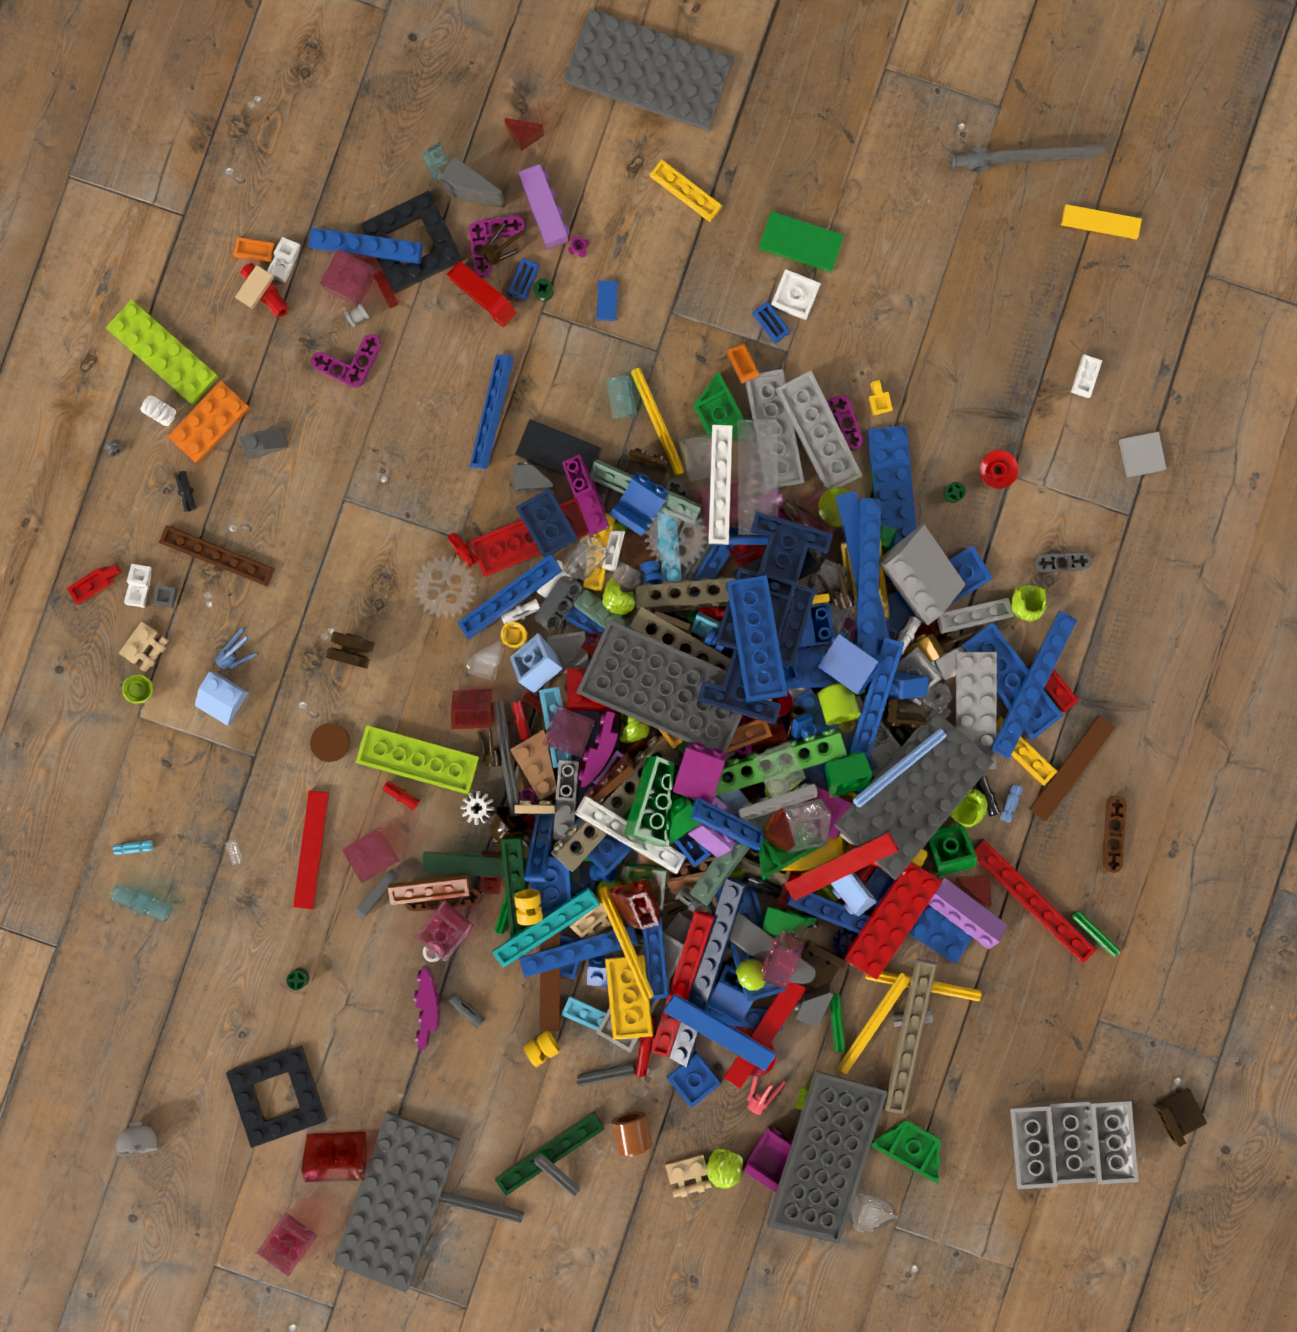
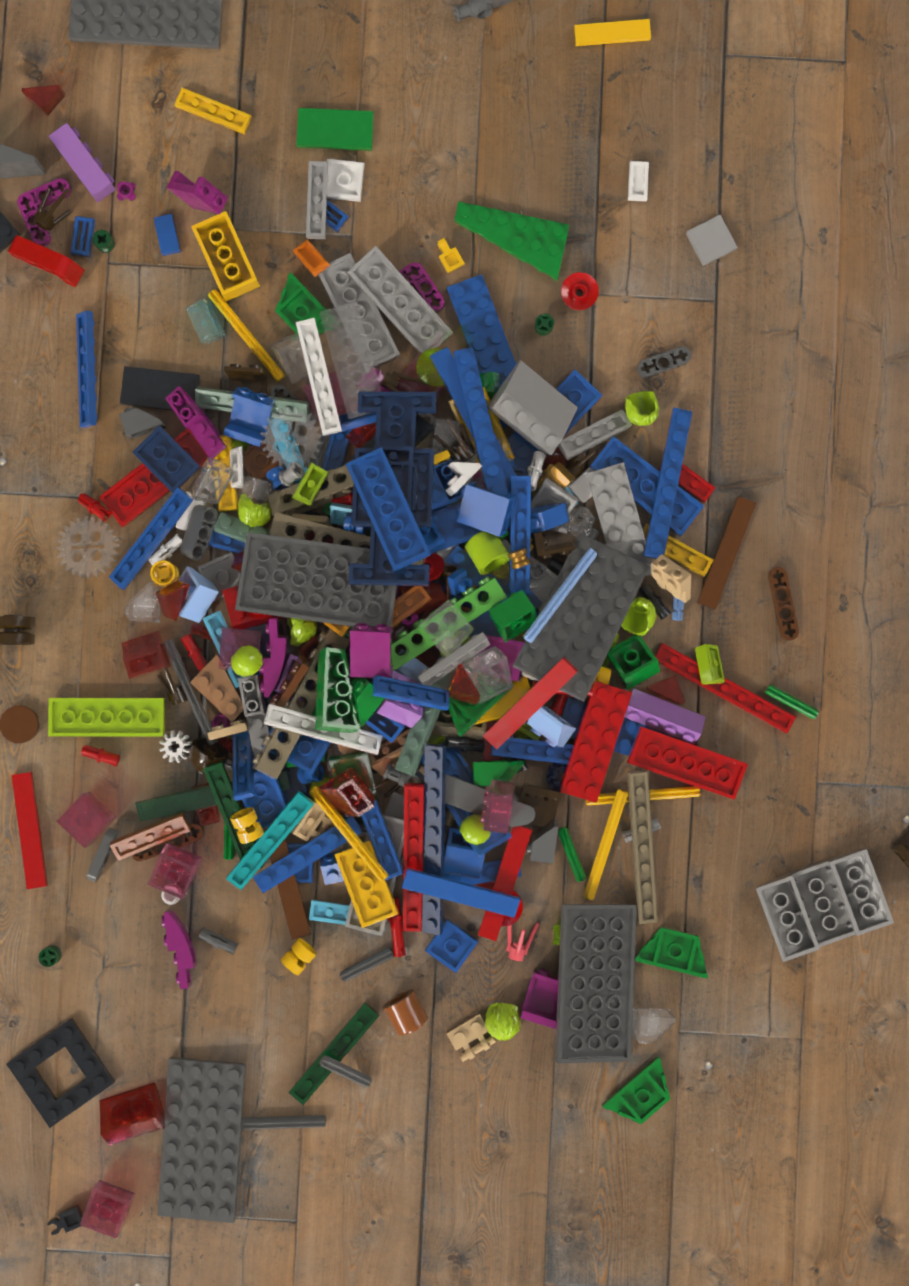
camera: 15 degrees left, 0 degrees up
(245, 1243) = (69, 1220): none -> black plate
(515, 662) = (172, 598): none -> clear red slope
(574, 746) = (246, 661): none -> lime hair
(654, 275) = (199, 195): none -> magenta panel
(660, 338) = (225, 256): none -> yellow brick
(666, 572) = (292, 473): none -> light grey bush
(681, 587) = (310, 484): none -> lime slope
(764, 308) = (317, 200): none -> light grey plate
(838, 621) = (464, 472): none -> white slope
(841, 1279) = (641, 1094): none -> green wing
(869, 720) = (518, 558): none -> pearl gold wheel
(955, 398) = (522, 236): none -> green wing
(977, 965) = (687, 762): none -> red plate
(1013, 779) = (672, 578): none -> tan plate
(1025, 874) = (709, 664): none -> lime slope

